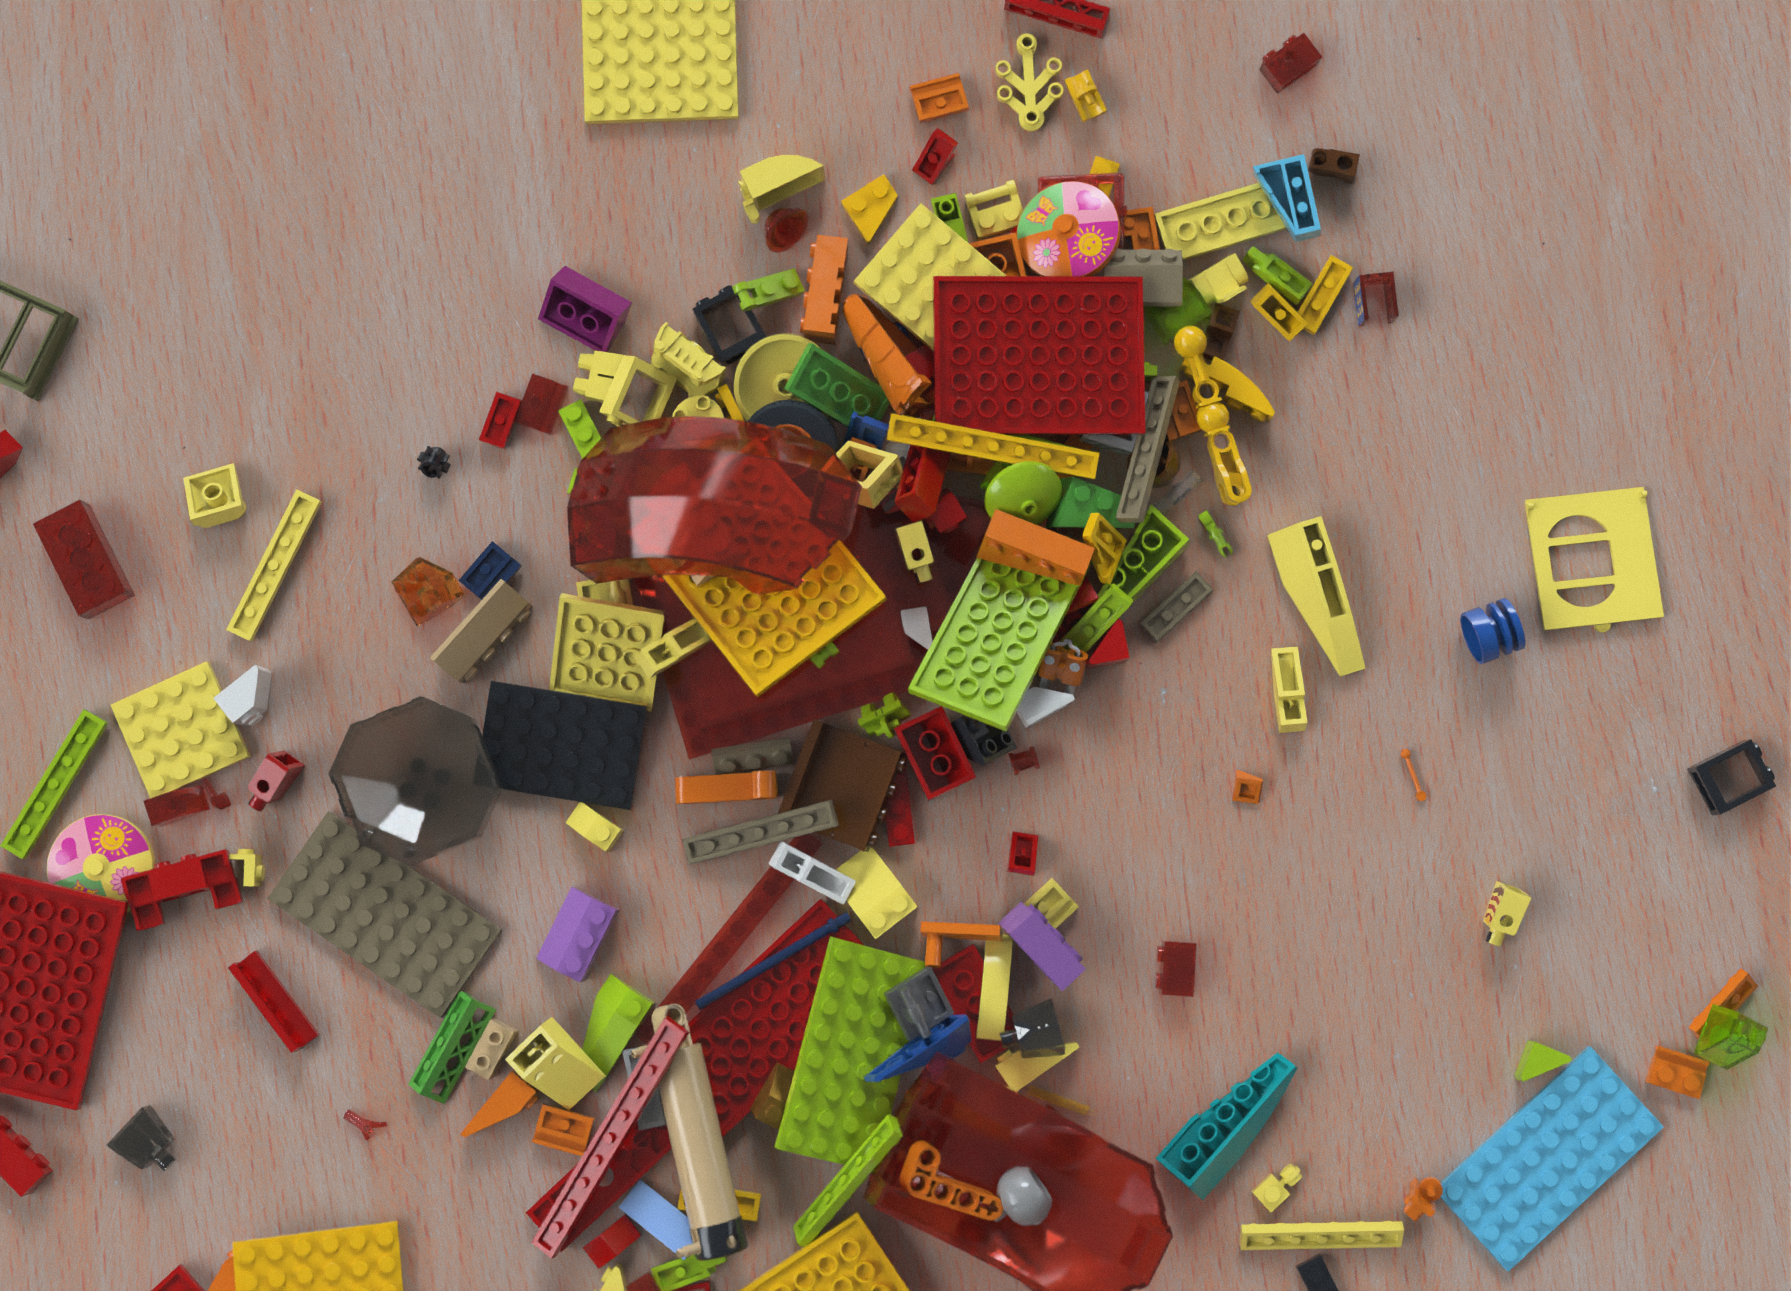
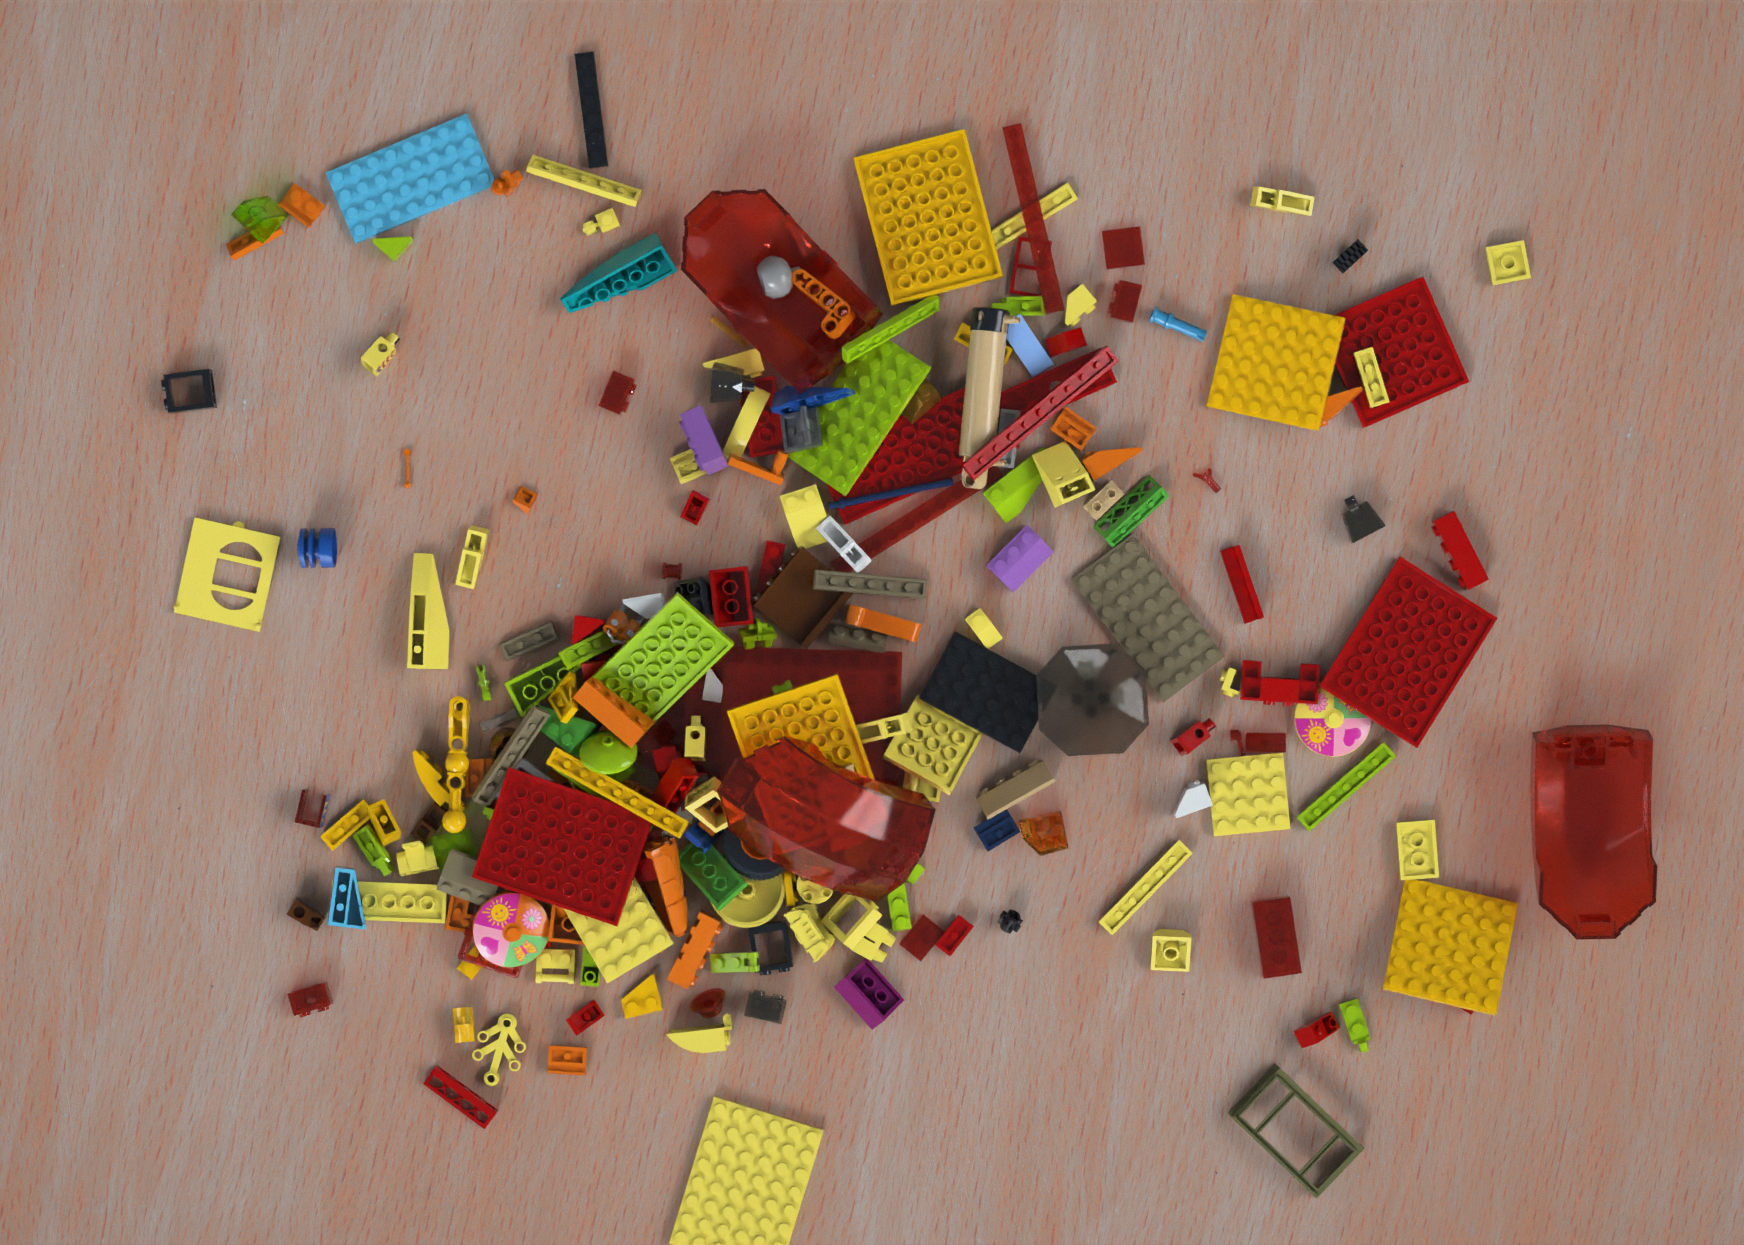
camera: 160 degrees left, 5 degrees up
(710, 247) = (765, 1007): none -> clear smoke brick

